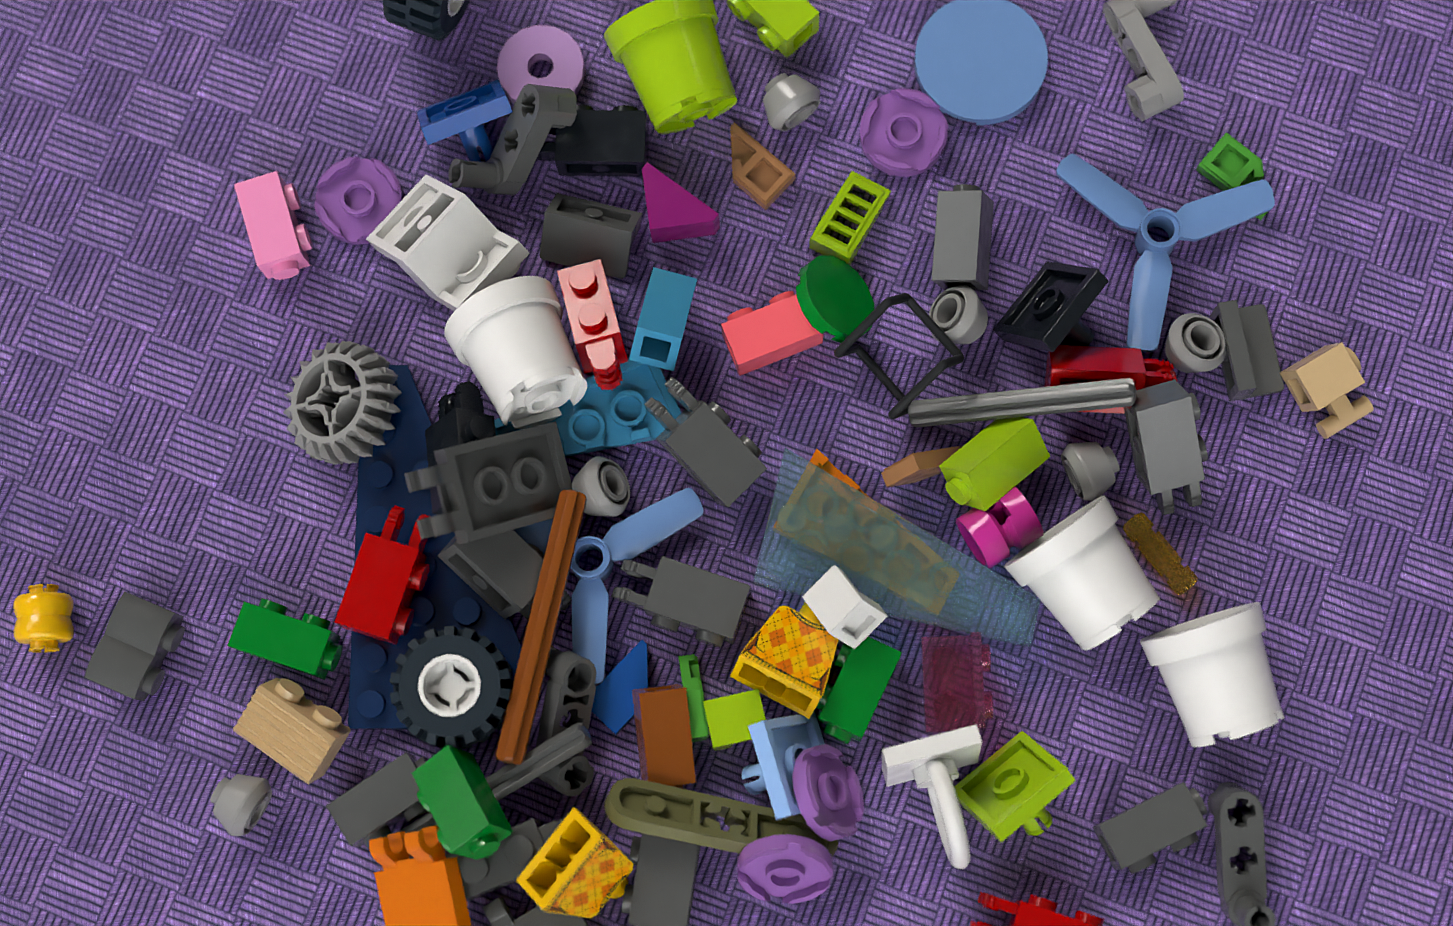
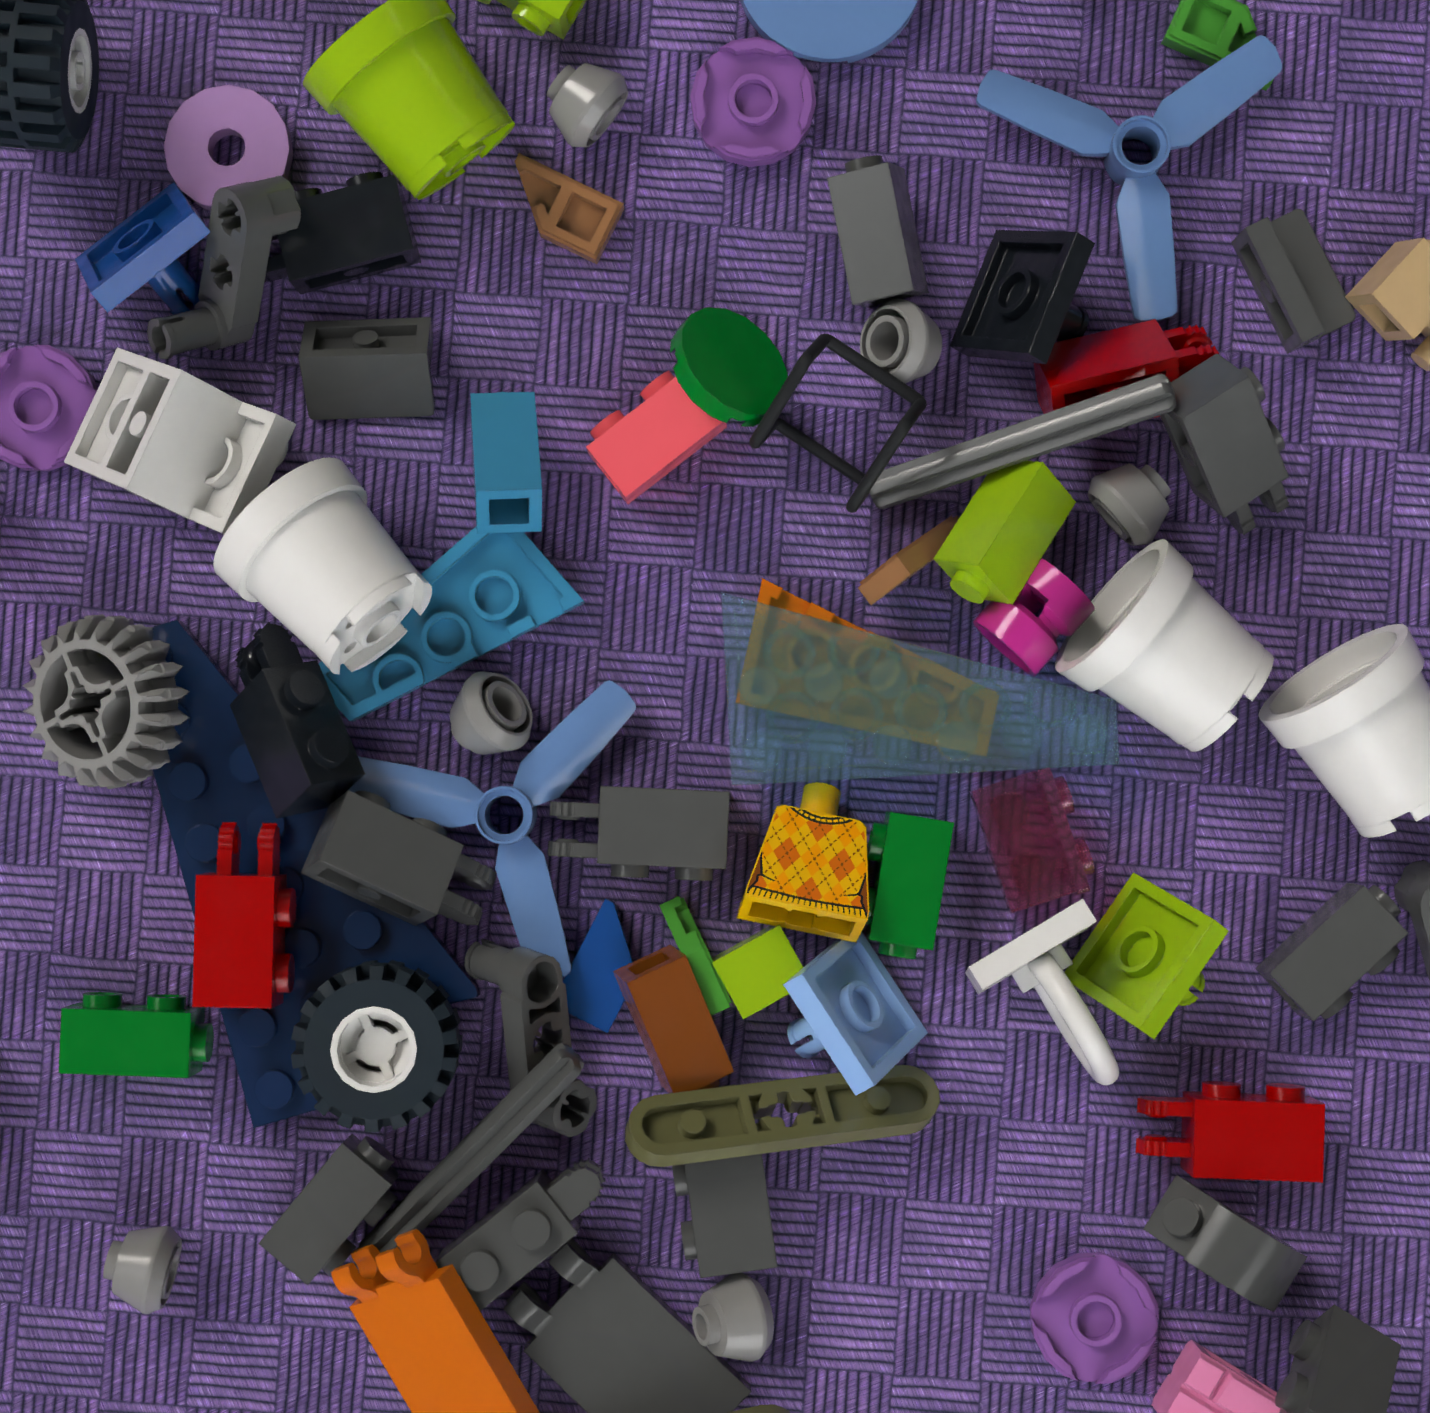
camera: 20 degrees left, 10 degrees up
(292, 729) = (181, 1153): tan brick -> none
(461, 804) = (438, 1196): green brick -> none
(495, 483) = (351, 761): dark grey tile -> none
(541, 628) = (470, 930): dark orange axle -> none
(576, 869) = (612, 1233): yellow torso -> none
(594, 322) = (413, 493): hinge -> none
(675, 211) = (473, 303): magenta slope -> none
(707, 445) = (616, 620): dark grey hinge -> none
(785, 868) = (881, 1143): medium lavender tile -> none
(827, 792) = (908, 1033): medium lavender tile -> none
(828, 245) = (704, 293): lime slope -> none
(843, 608) = (860, 792): white panel -> none
(1160, 553) = (1251, 587): clear yellow axle -> none
(1195, 344) = (1227, 292): light grey cone -> none

